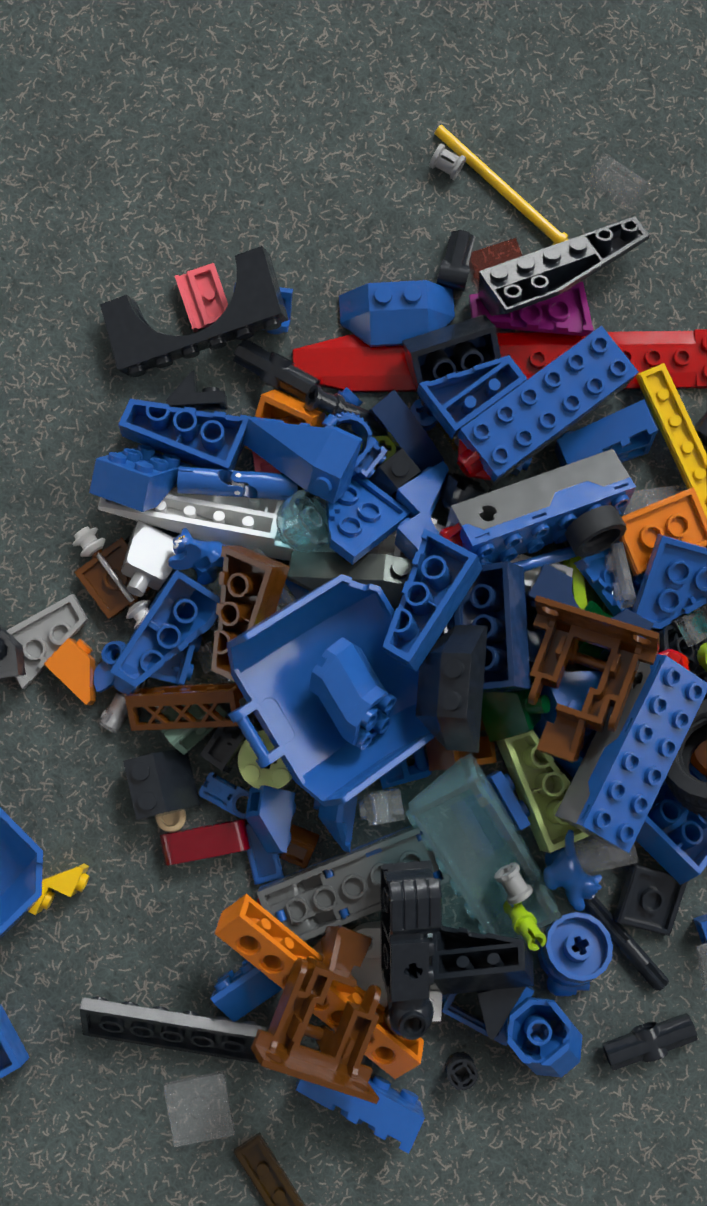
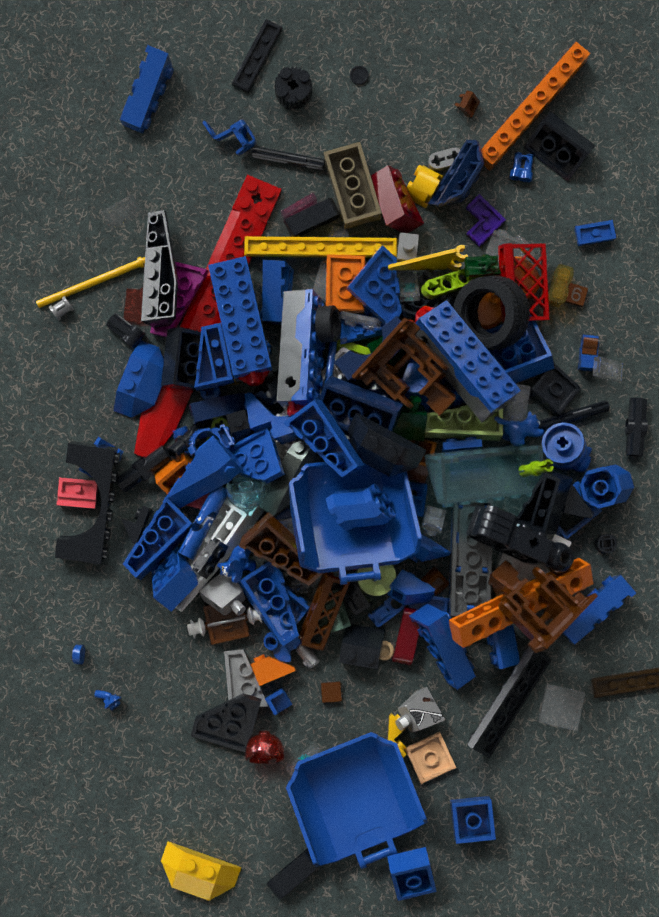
camera: 60 degrees left, 0 degrees up
(35, 699) = (278, 701): none -> blue panel
(48, 949) = (430, 757): none -> light nougat tile
(81, 768) = (331, 691): none -> reddish brown tile
(103, 906) = (419, 712): none -> light grey torso
(176, 513) = (206, 565): none -> black hinge
(225, 882) = (451, 656): none -> blue wedge
(513, 883) = (510, 464): light grey bush -> none

